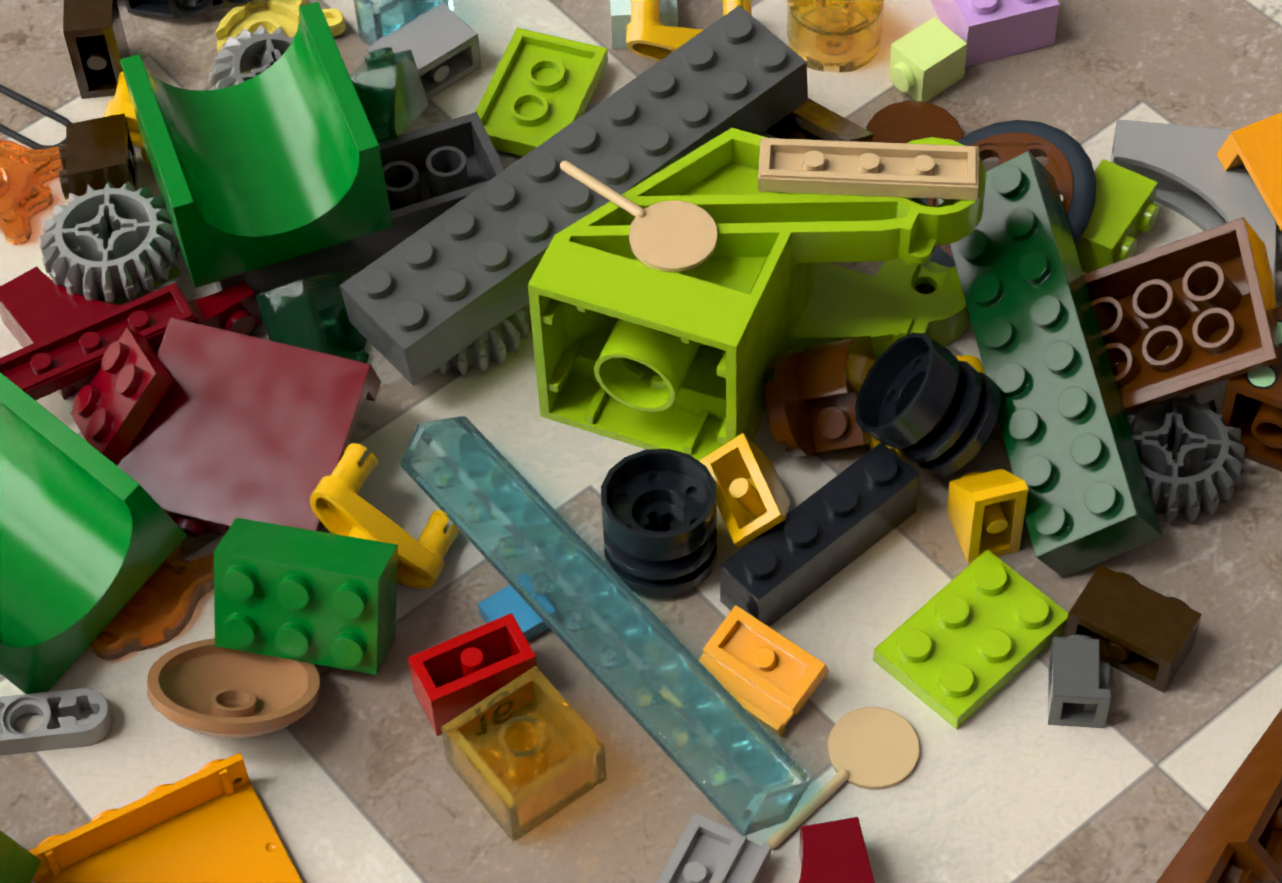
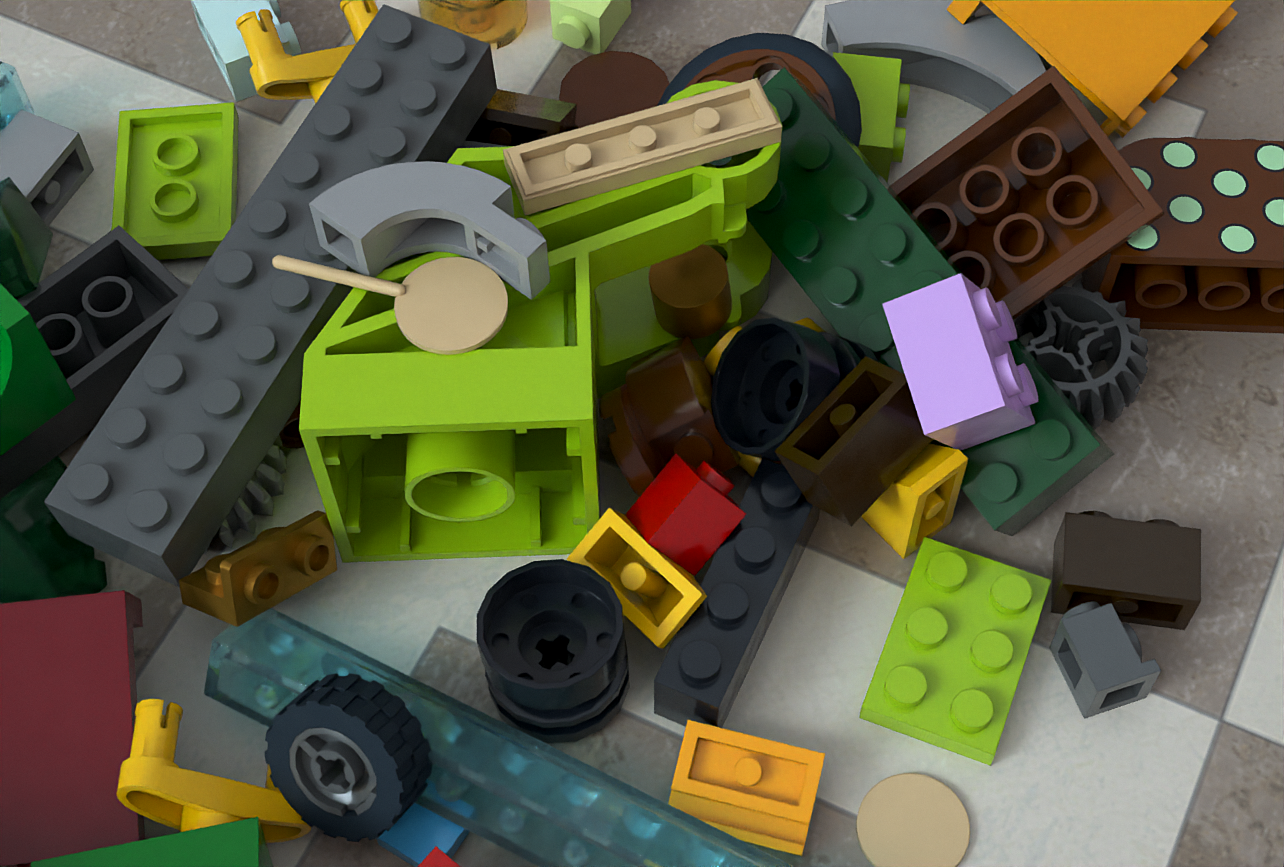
camera: 25 degrees left, 5 degrees up
(477, 393) = (262, 571): none -> pearl gold bracket
(478, 534) = (348, 756): none -> black wheel
(682, 161) = (430, 209): none -> light grey arch
(801, 459) = (686, 512): none -> red brick
(886, 301) = (691, 293): none -> pearl gold piece
(948, 446) = (855, 441): none -> dark brown brick
(1045, 412) = (961, 362): none -> lavender brick

